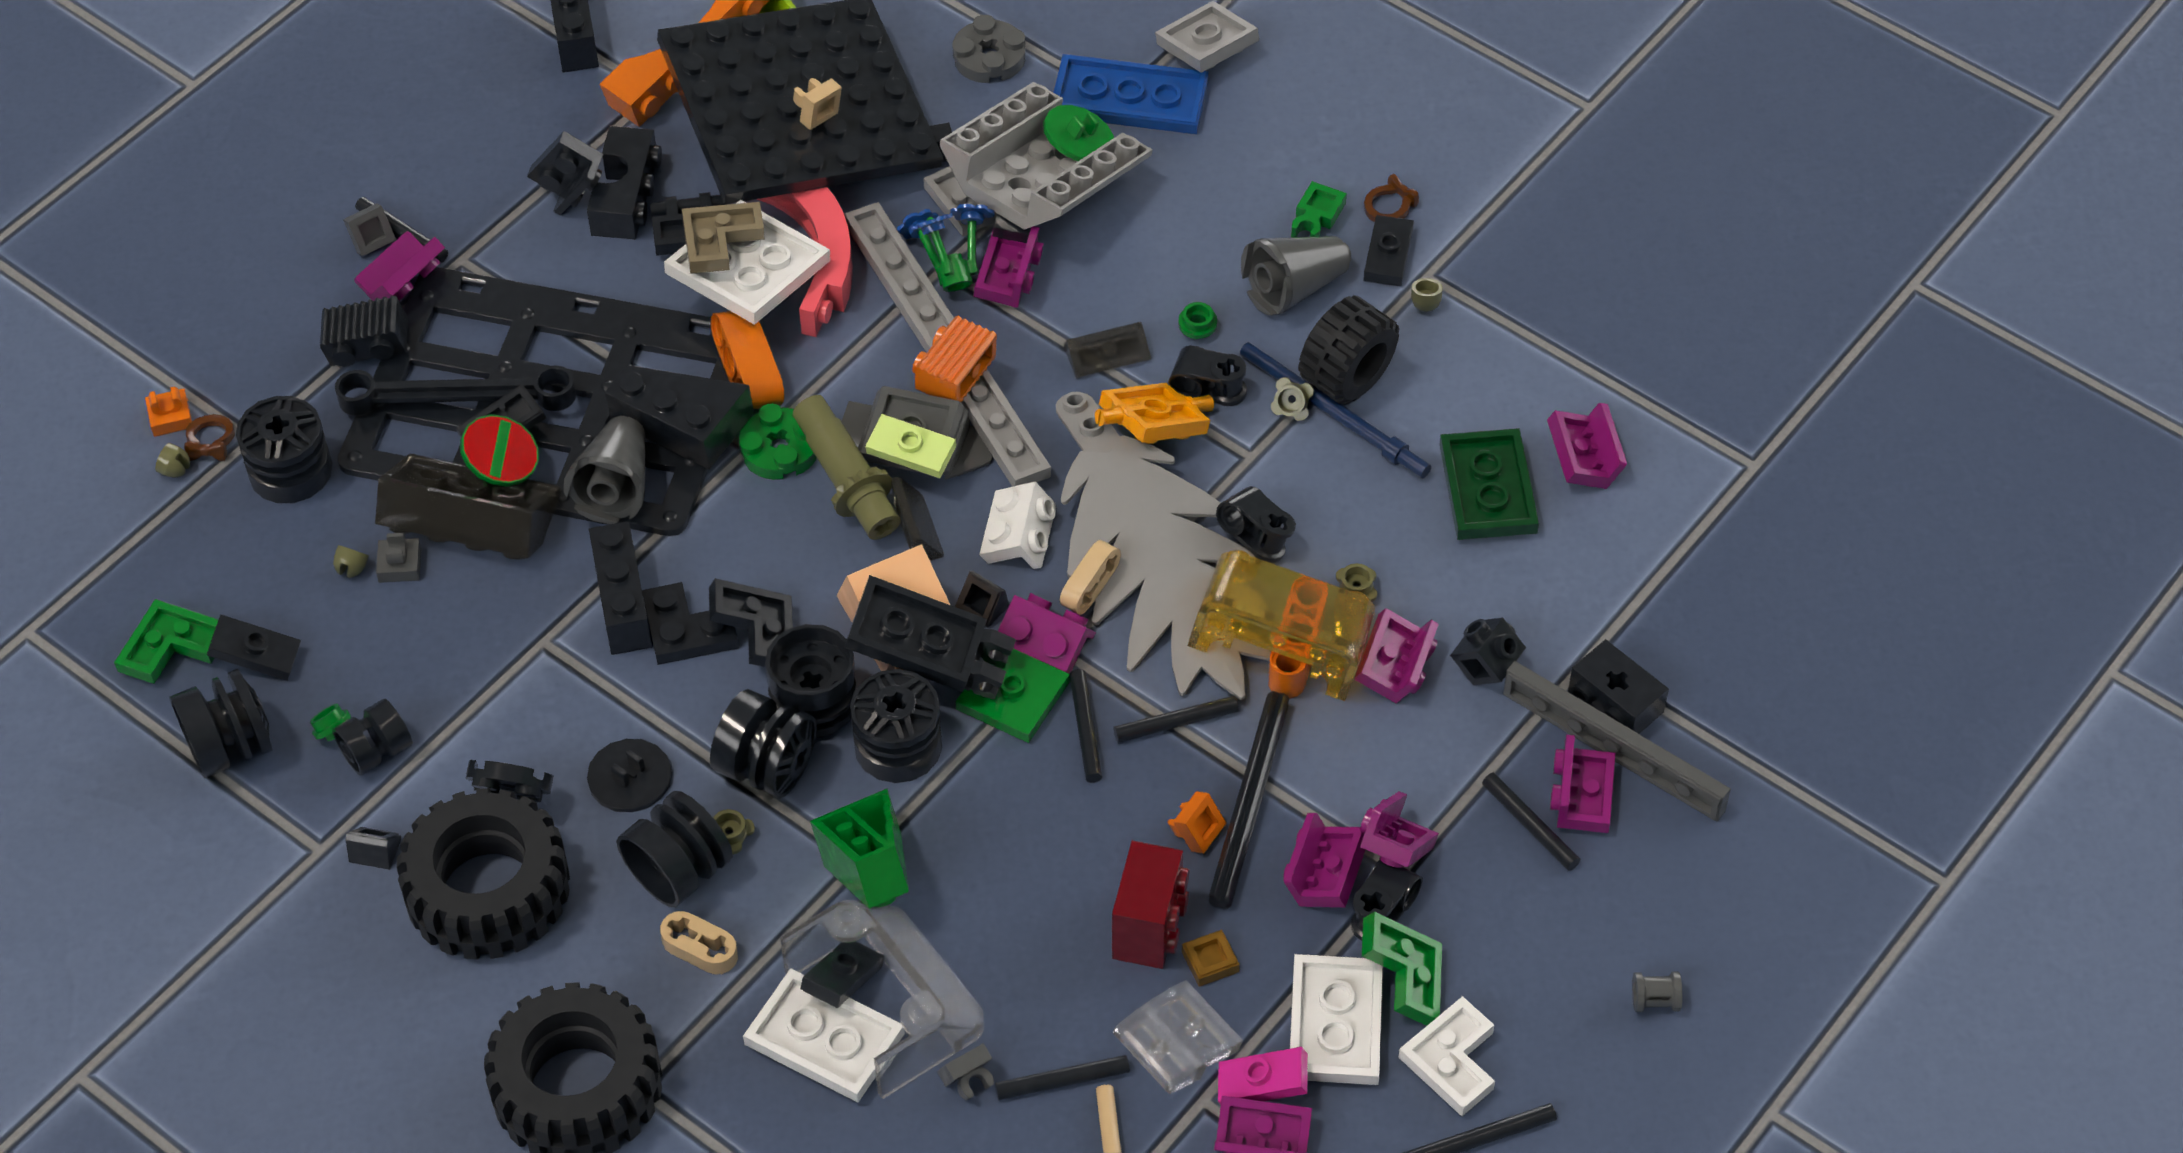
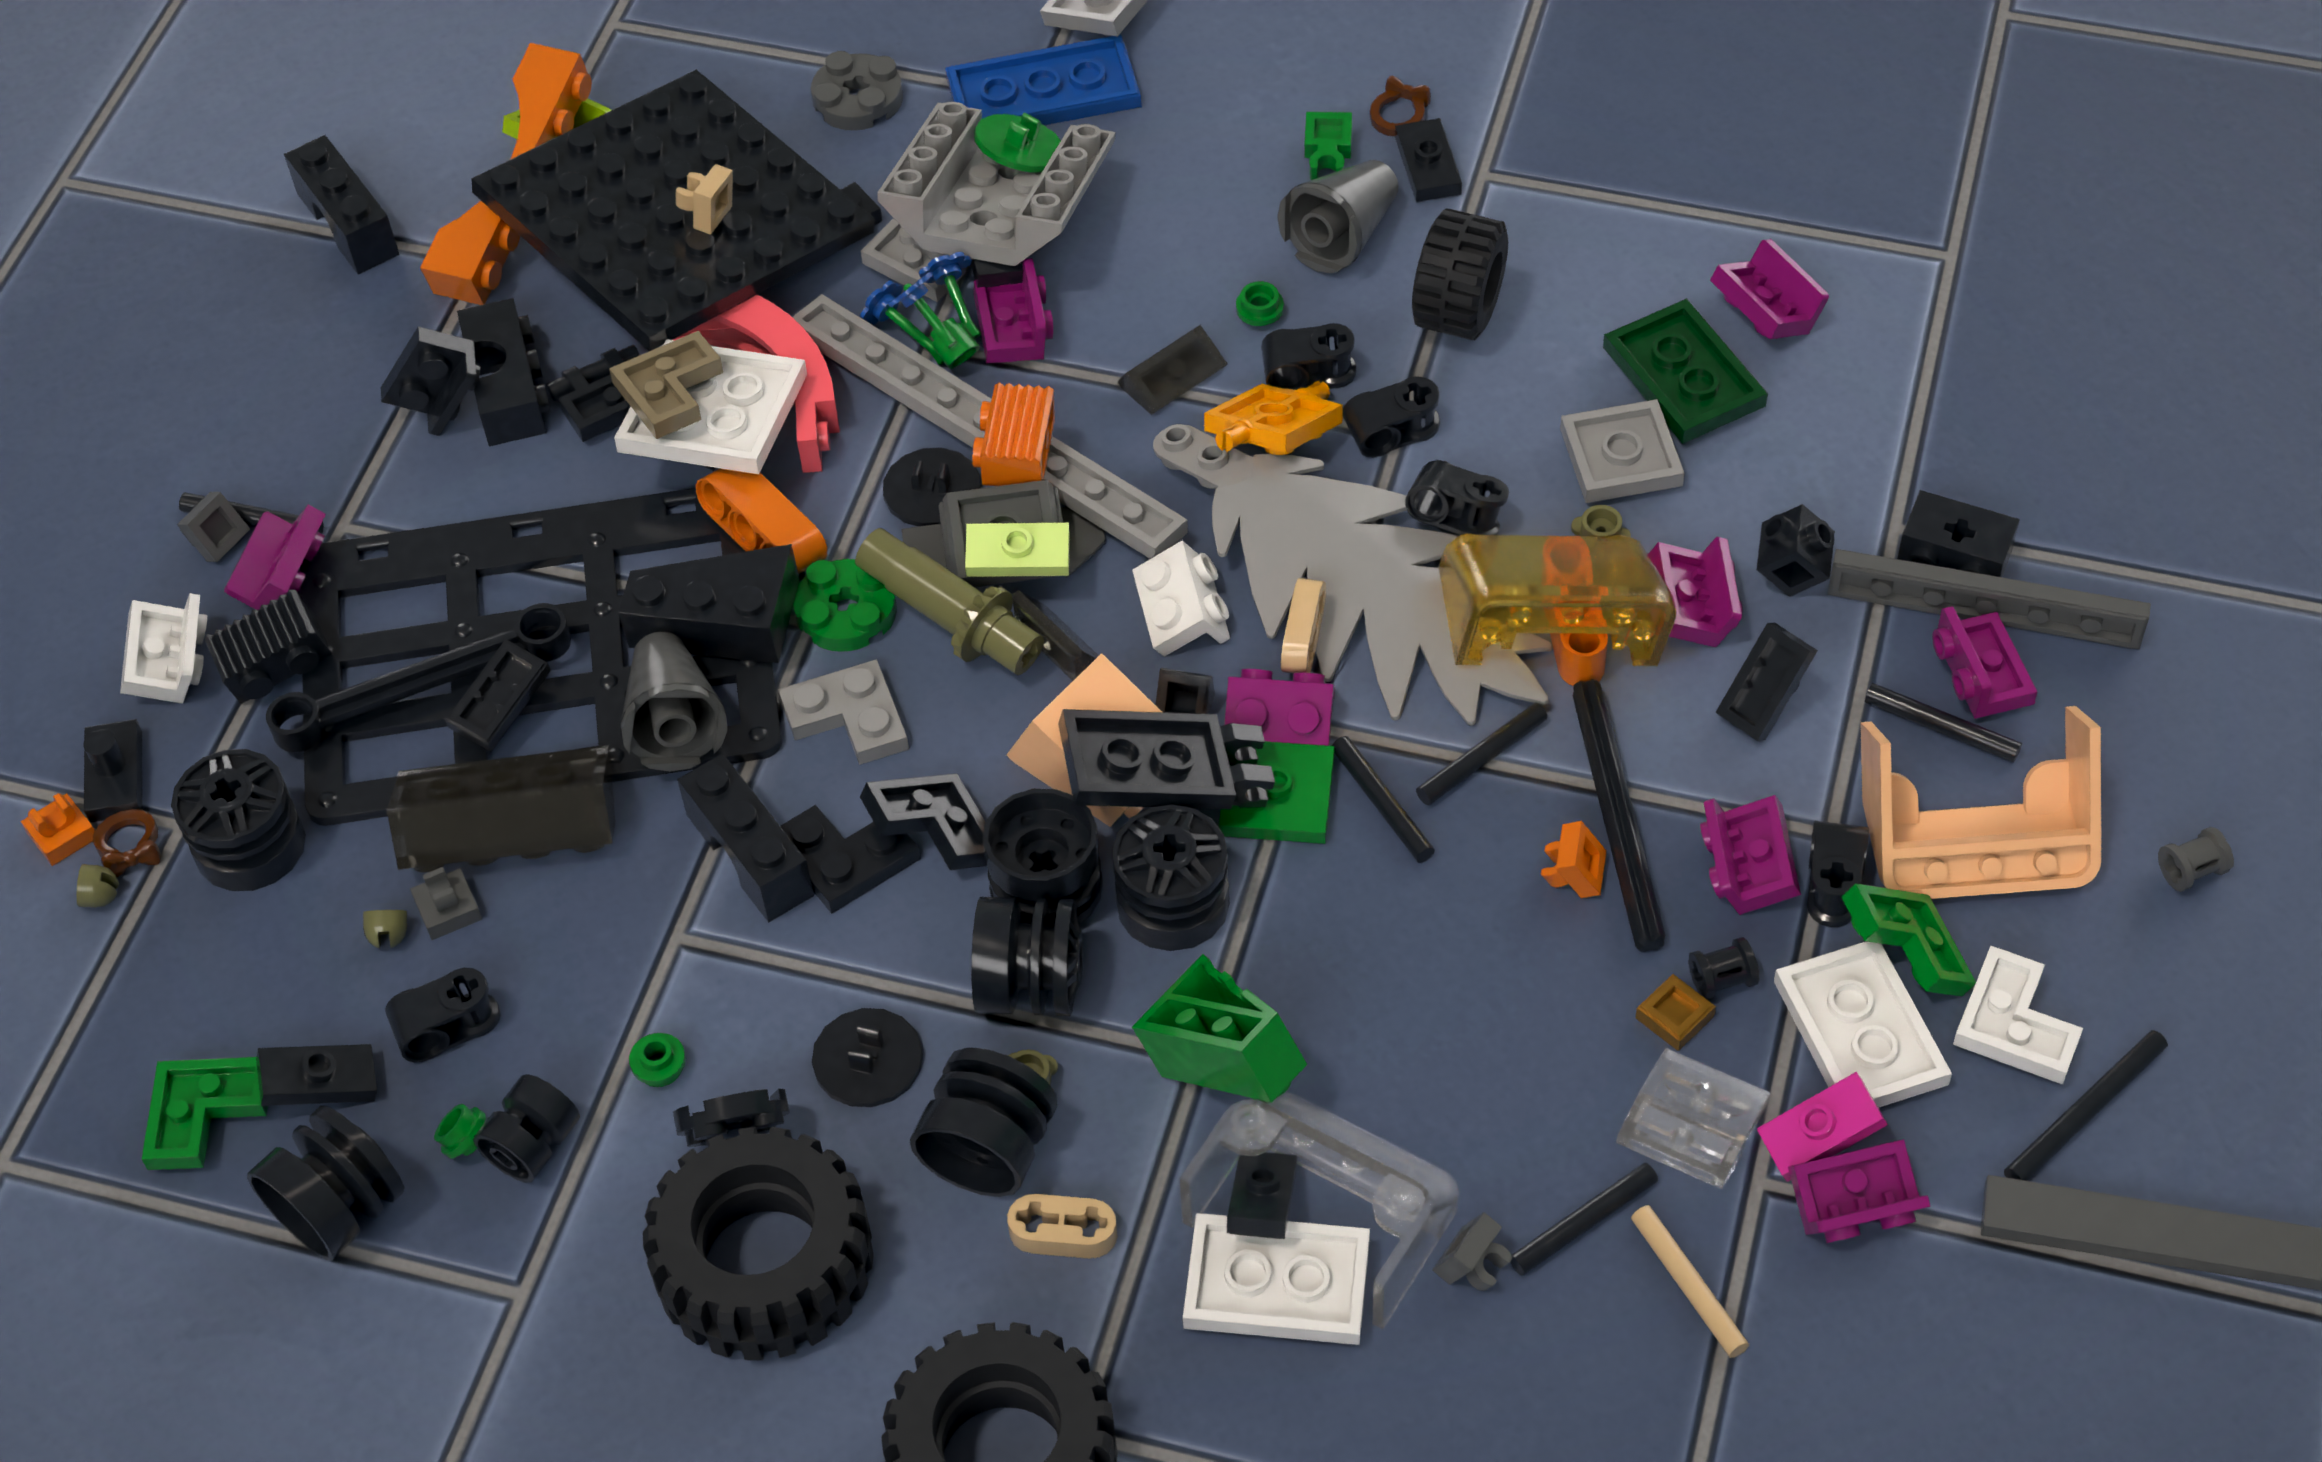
camera: 20 degrees left, 0 degrees up
(223, 381) = (112, 769): none -> black tile
(291, 306) = (161, 650): none -> white bracket
(353, 635) = (439, 1016): none -> black piece
(372, 847) = (591, 1265): black slope -> none
(489, 731) = (662, 1071): none -> green plate
(499, 450) = (517, 726): red piece -> none
(748, 515) = (848, 698): none -> light grey plate
(881, 367) = (921, 481): none -> black piece
(1149, 905) = (1586, 974): dark red brick -> none
(1244, 442) = (1389, 419): none -> black piece
(1259, 939) = (1724, 968): none -> black bush
(1281, 403) = (1425, 362): olive plate -> none
(1392, 448) = (1558, 369): dark blue bar -> none
(1393, 837) = (1818, 795): magenta bracket -> none
(1405, 529) = (1621, 451): none -> light grey plate
(1406, 741) = (1766, 681): none -> black tile
(1426, 294) = (1499, 191): olive hinge -> none
(1501, 922) = (1989, 849): none -> light nougat windscreen

